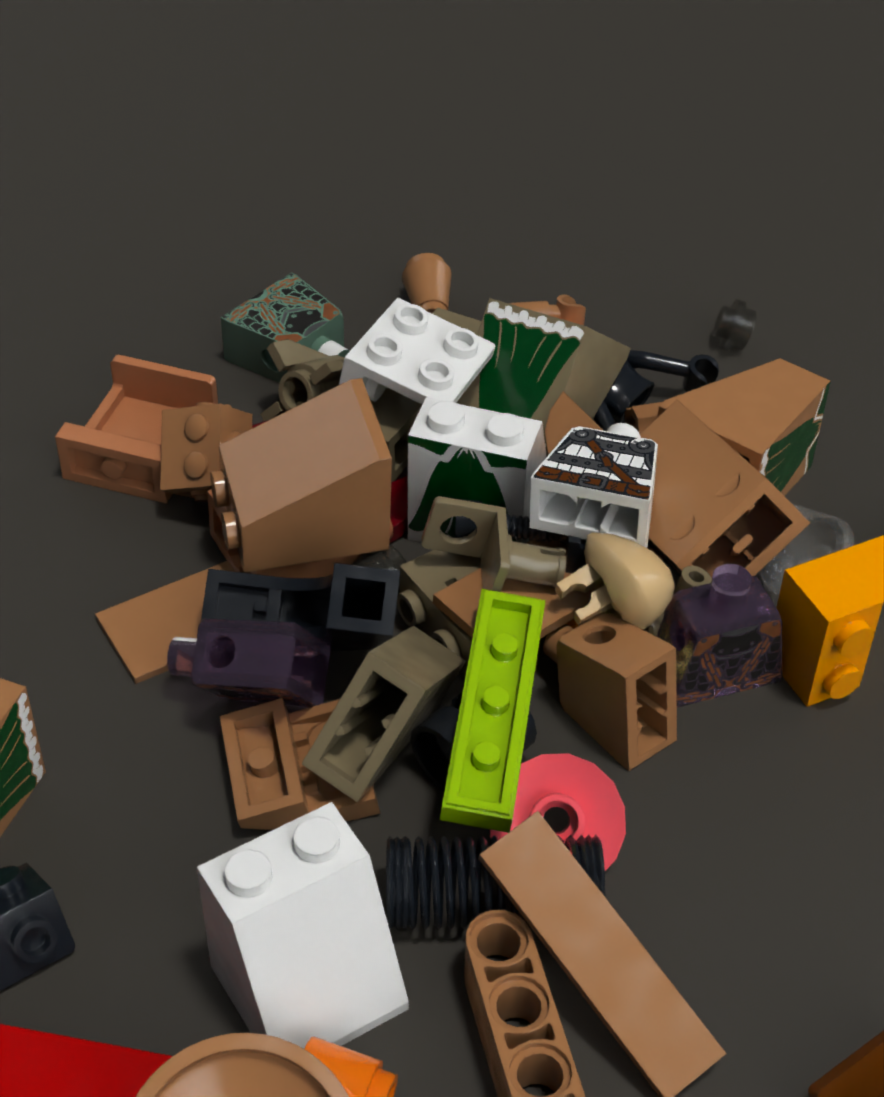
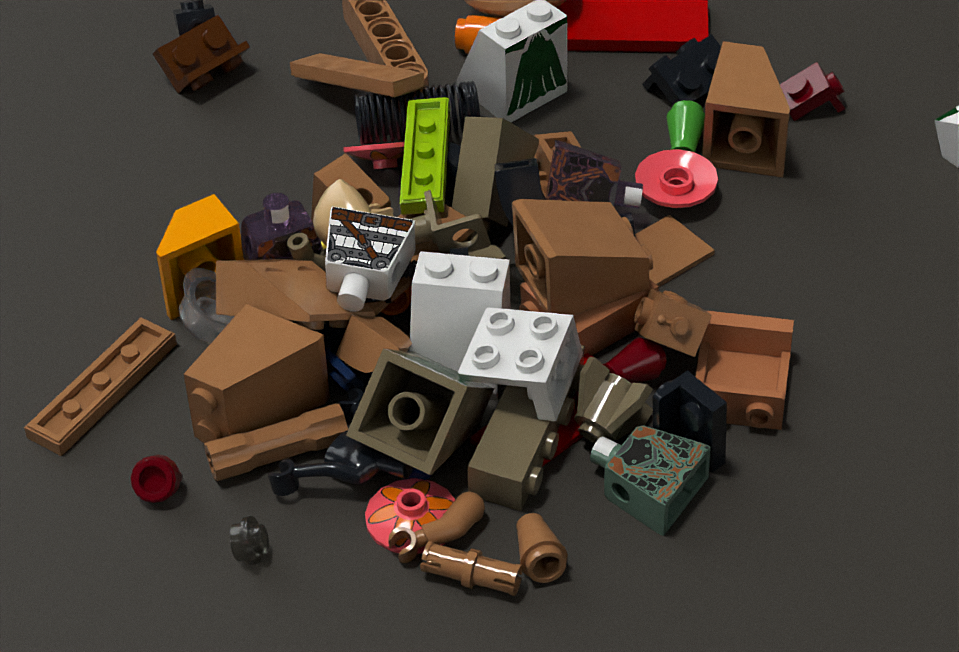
camera: 175 degrees right, 0 degrees up
(47, 807) = (685, 125): none -> bright green cone
(104, 702) = (676, 178): none -> coral dish
(235, 341) = (692, 412): none -> black bracket
(499, 280) = (471, 568): none -> medium nougat pin
(850, 392) = (155, 478): none -> dark red tile

